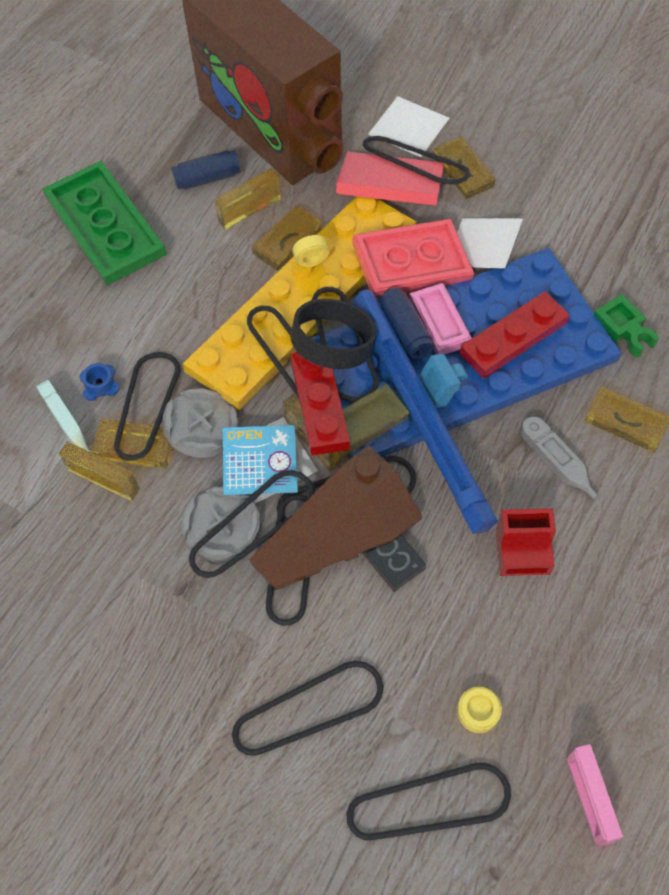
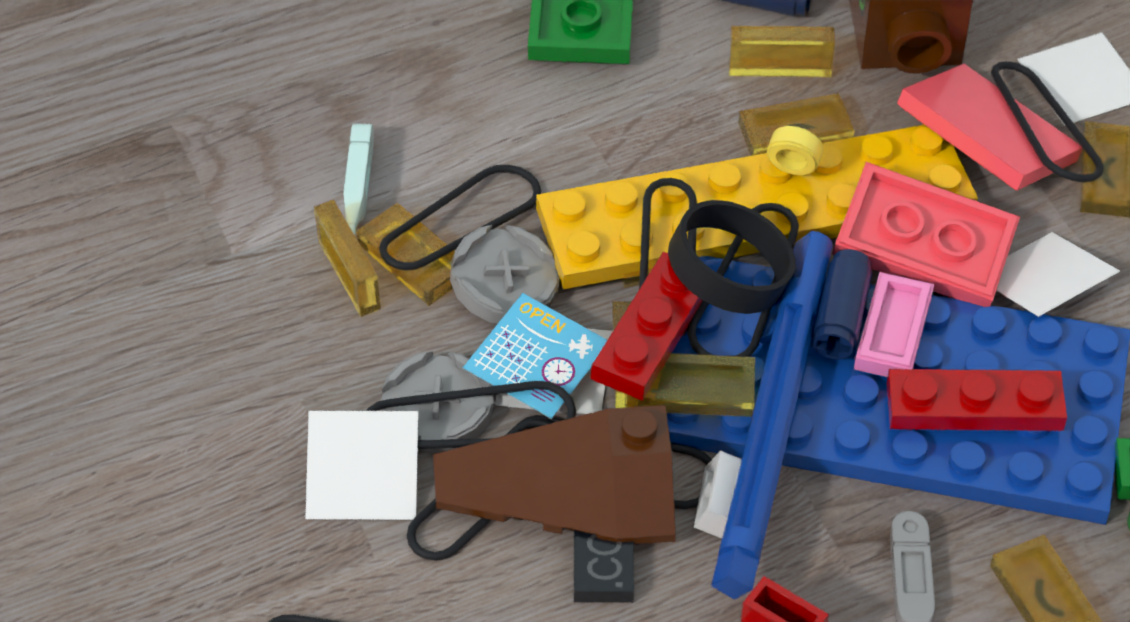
camera: 35 degrees right, 10 degrees down
(97, 373) = (429, 161): blue plate -> none
(212, 594) = (362, 465): none -> white sticker
(425, 475) = (717, 493): none -> white piece
(441, 379) = (827, 393): dark azure tile -> none

